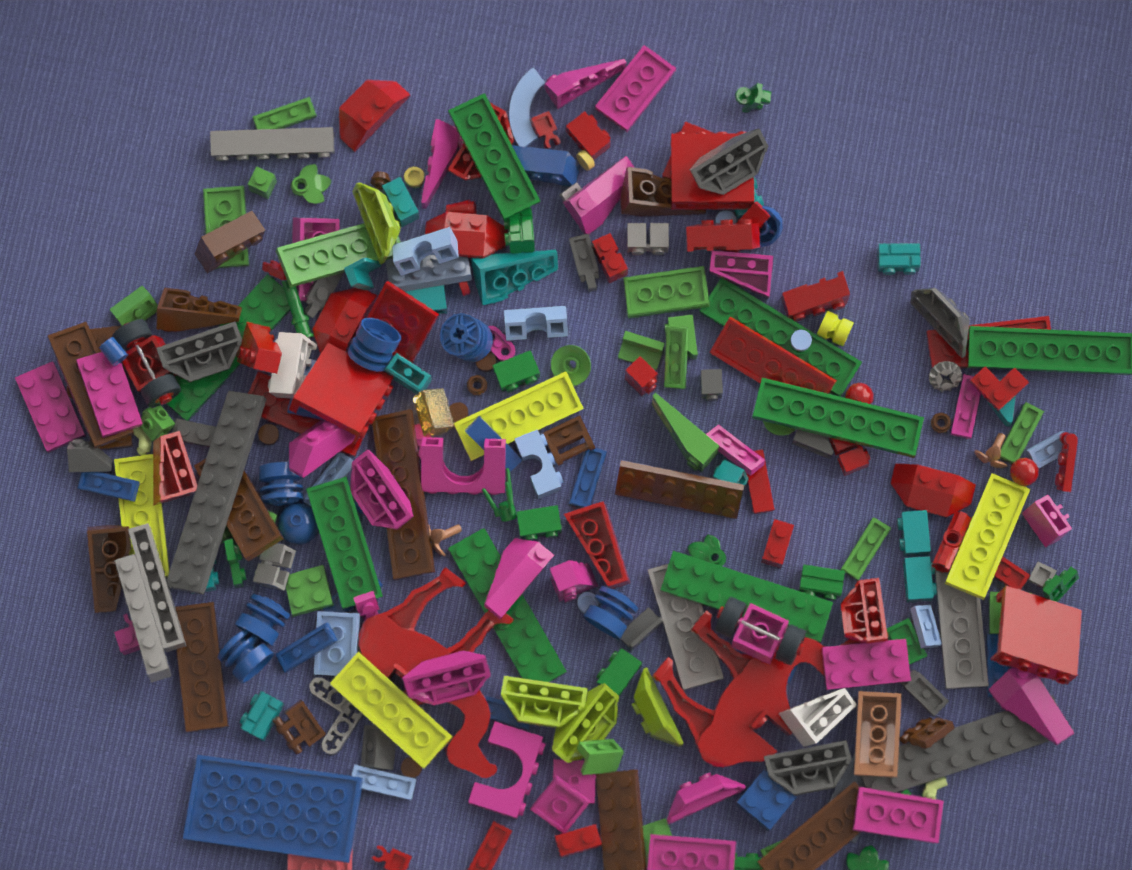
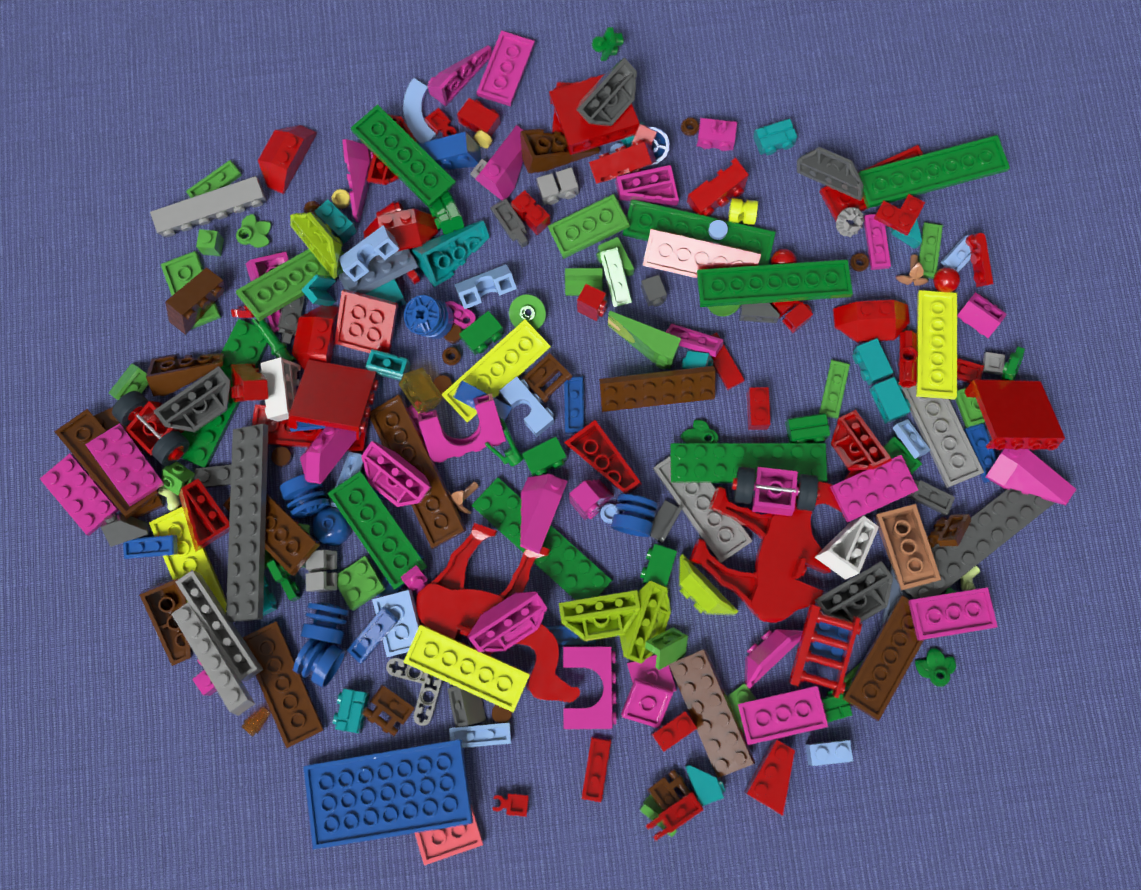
camera: 15 degrees left, 0 degrees up
(113, 351) = (115, 426): blue piece -> none
(161, 696) = (256, 721): none -> clear orange cone
(374, 344) = (349, 348): blue wheel -> none
(745, 789) = (804, 654): none -> red fence
(812, 211) = (689, 122): none -> reddish brown plate
(837, 235) = (716, 134): none -> dark pink brick

